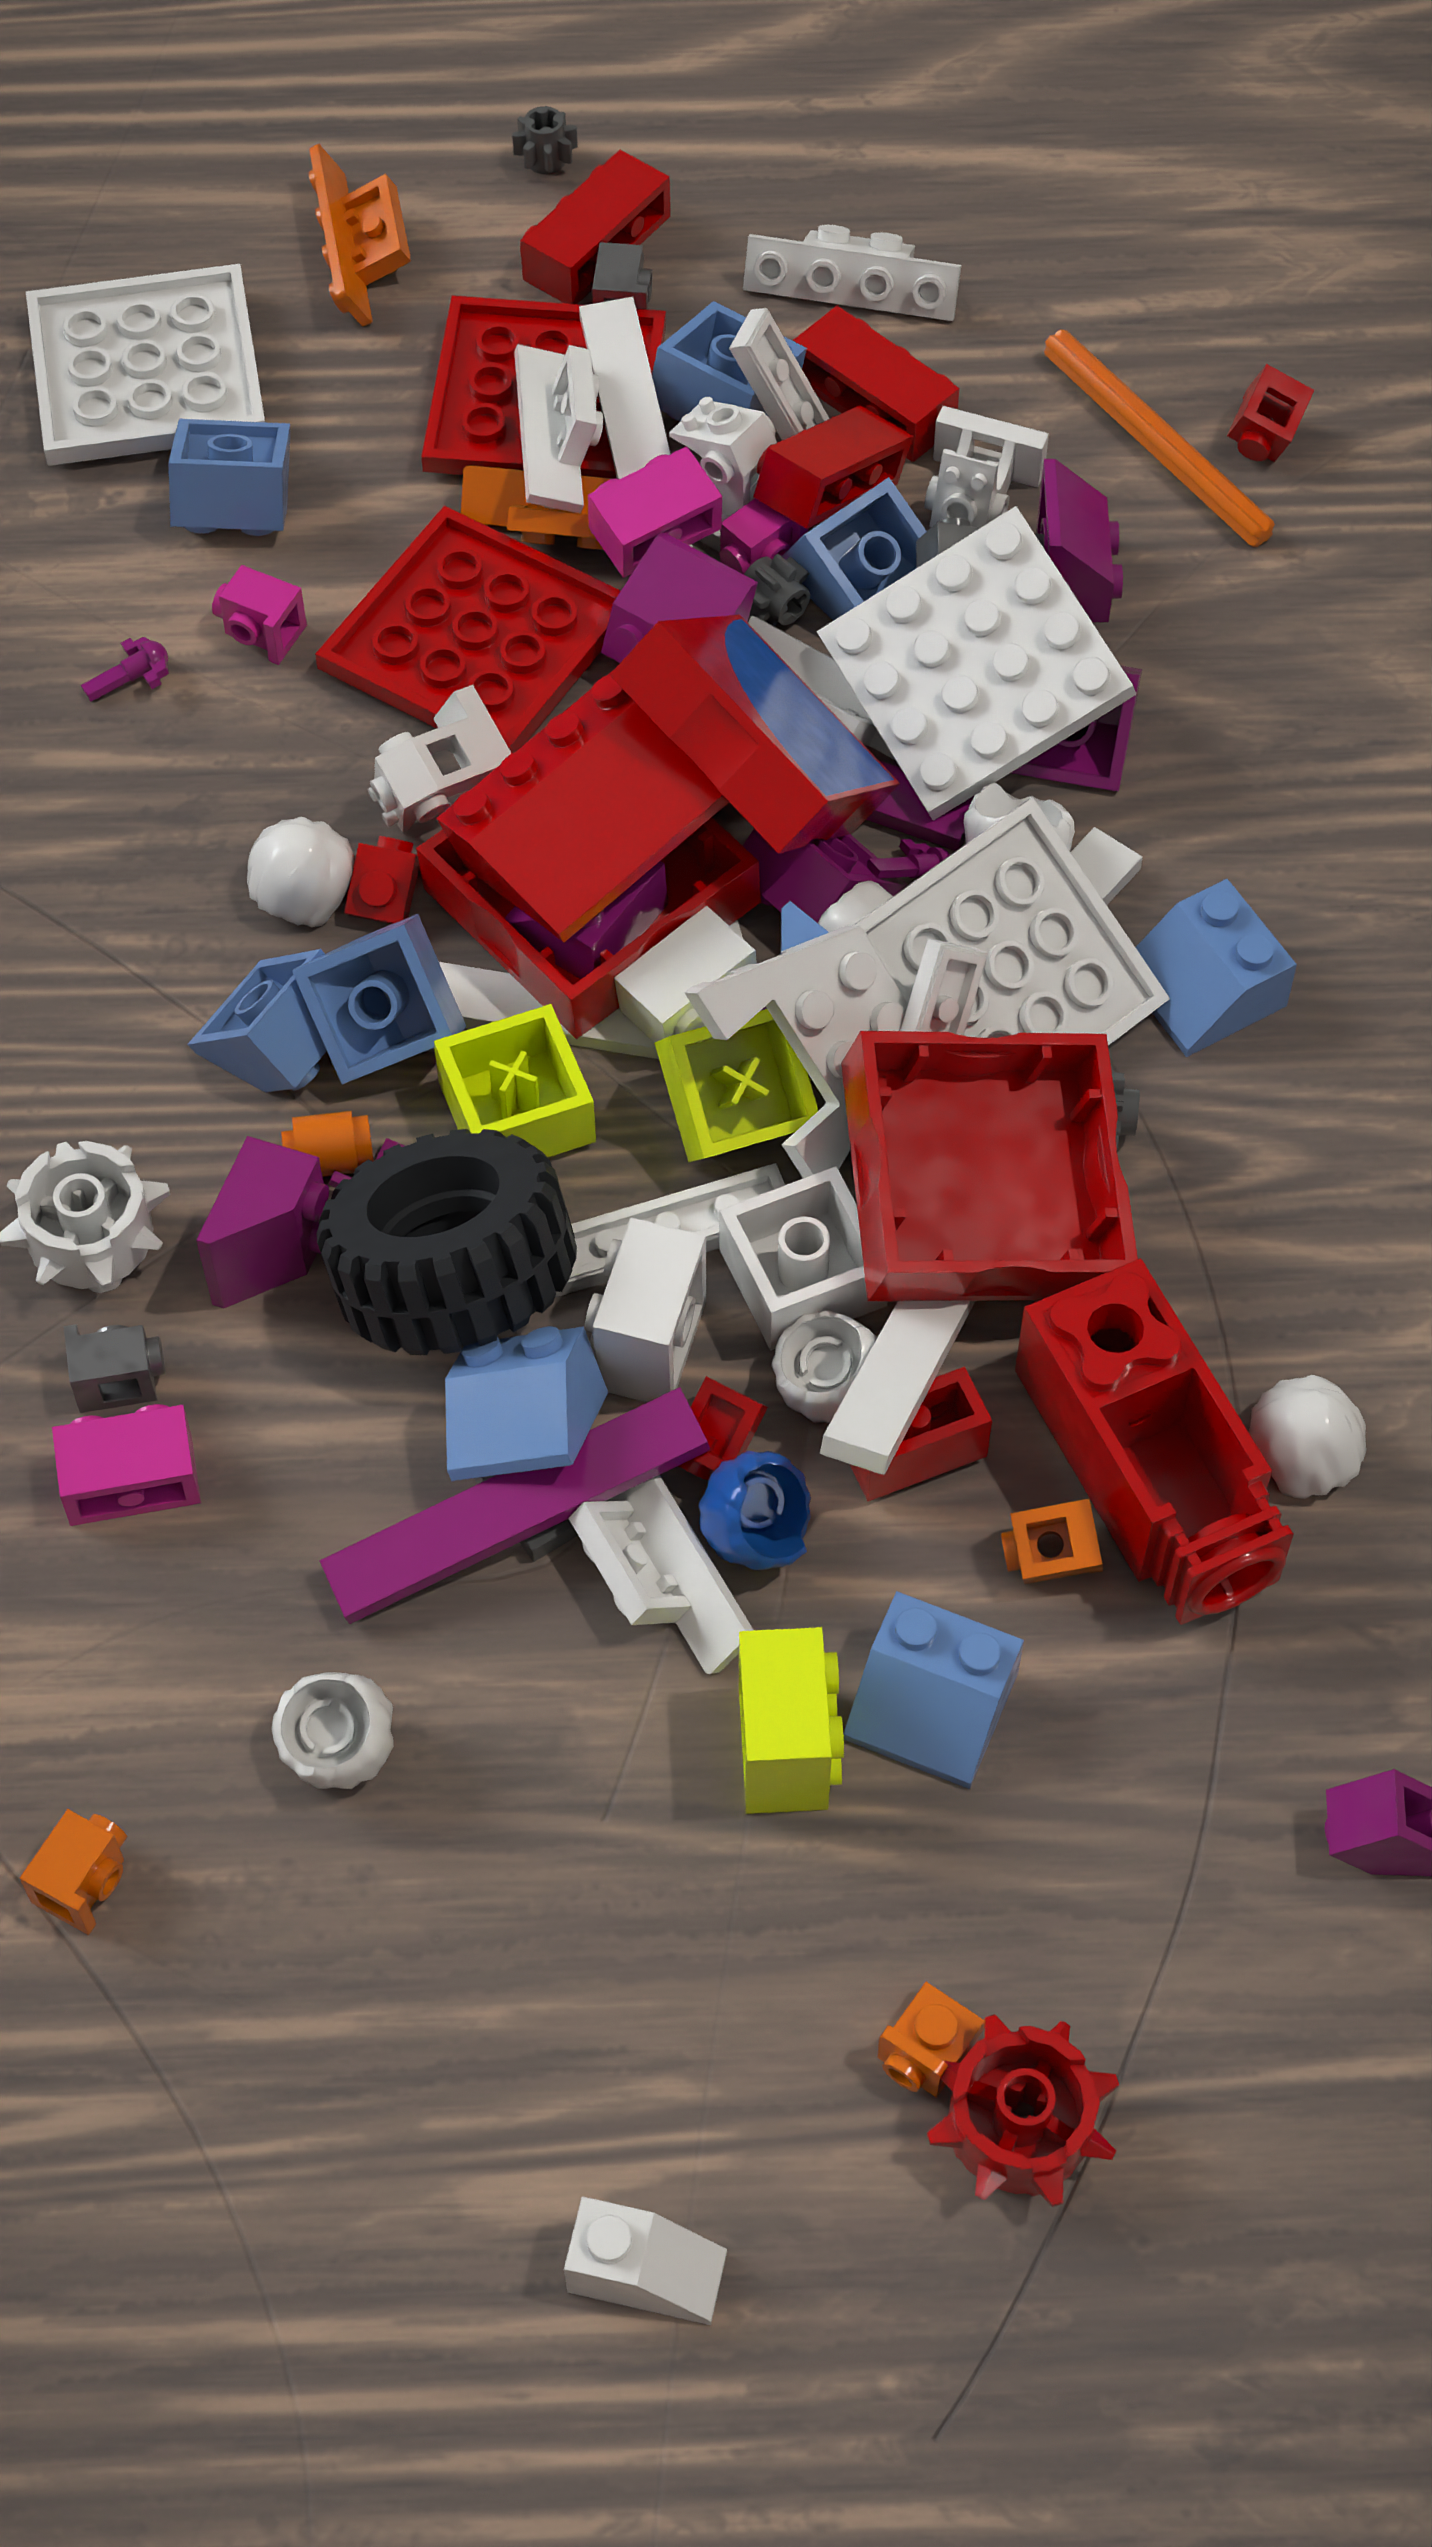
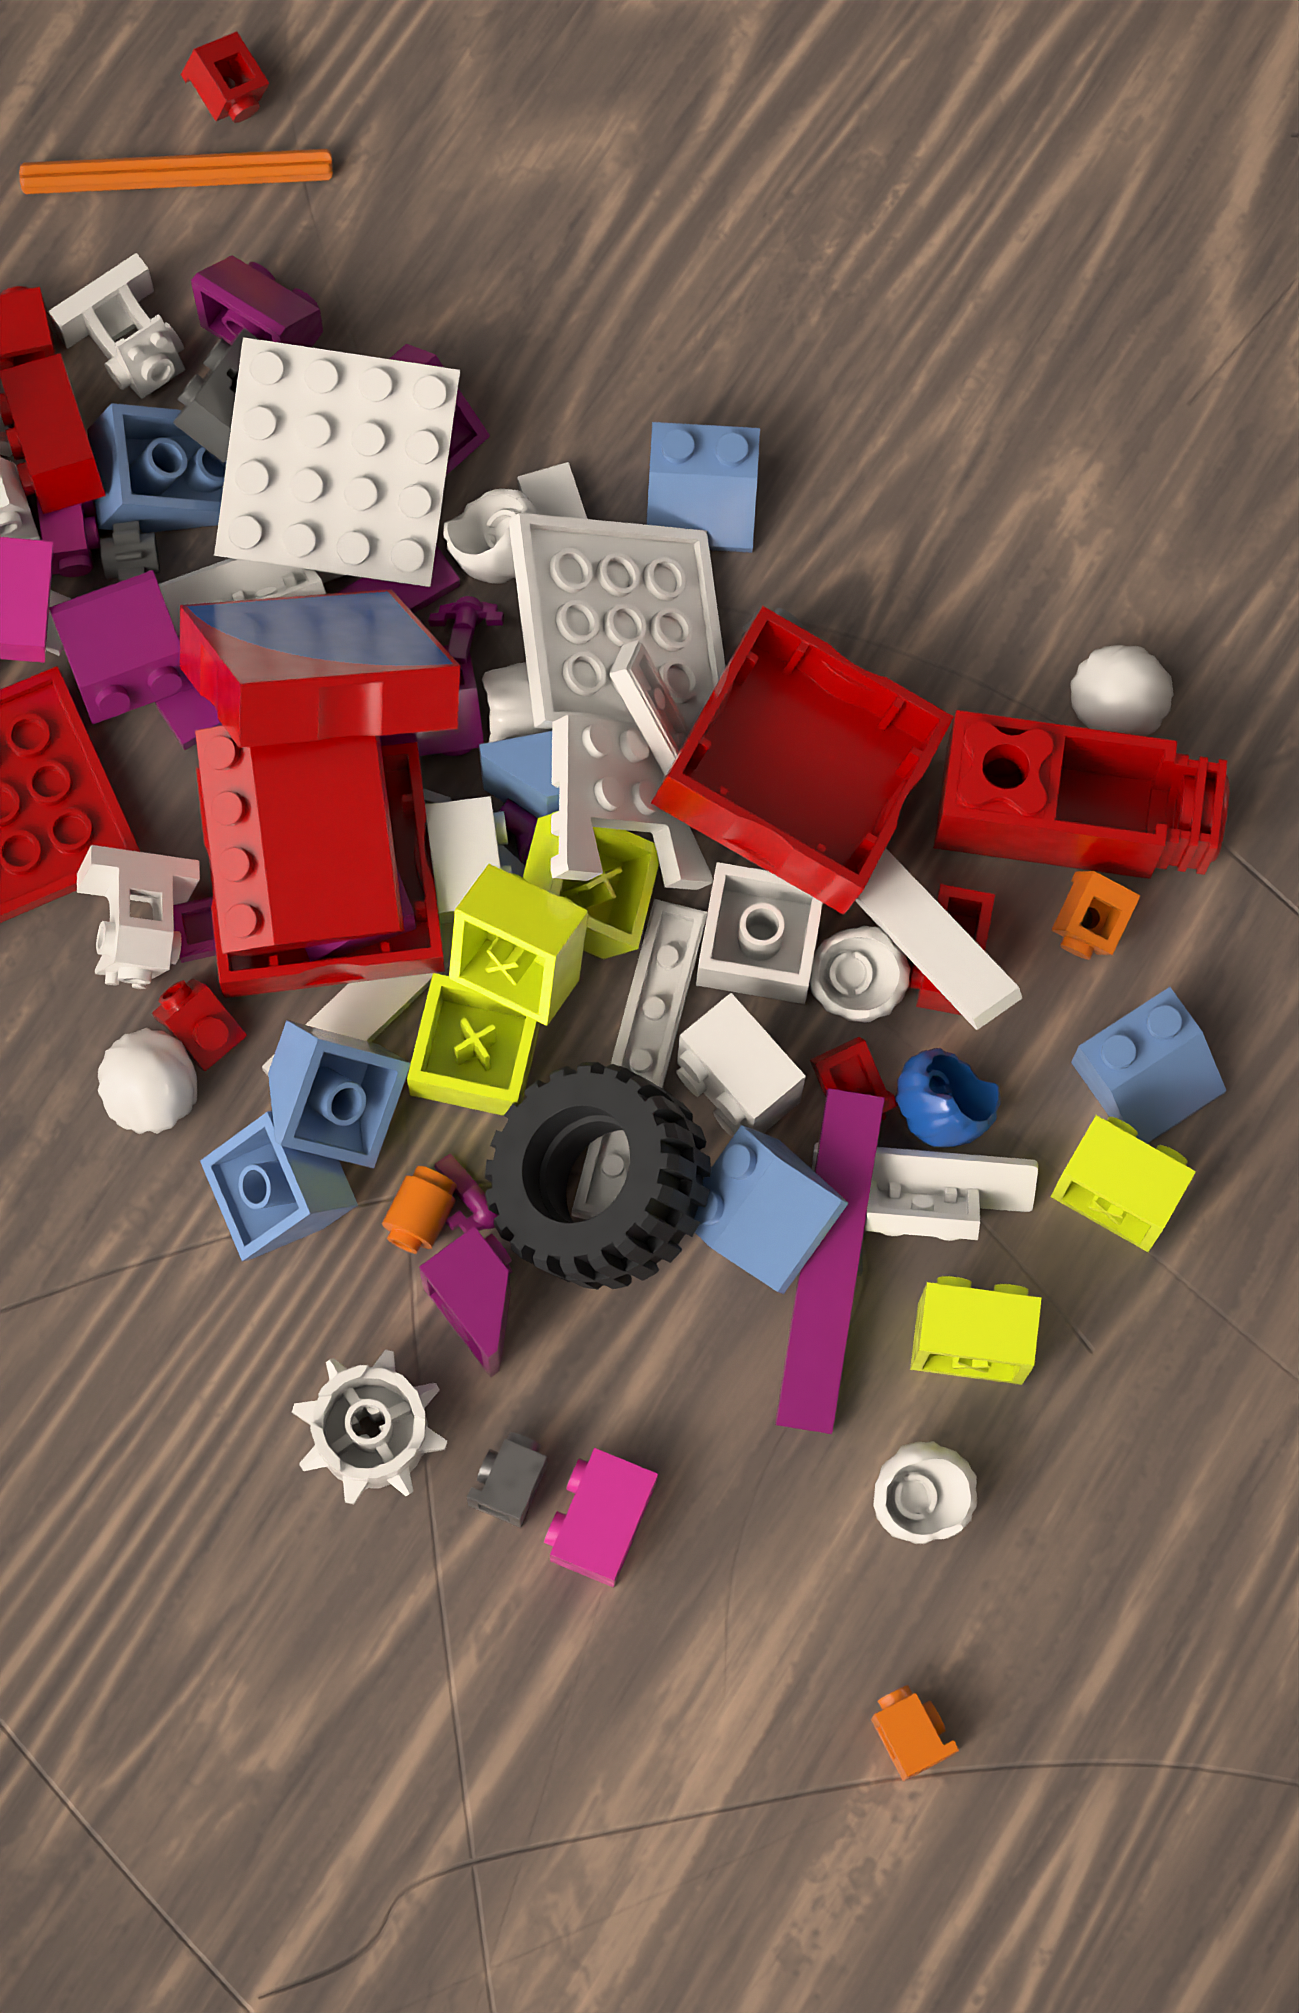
camera: 60 degrees left, 15 degrees up
(530, 1672) = (976, 1331): none -> neon yellow brick
(617, 1032) = (518, 944): none -> neon yellow brick

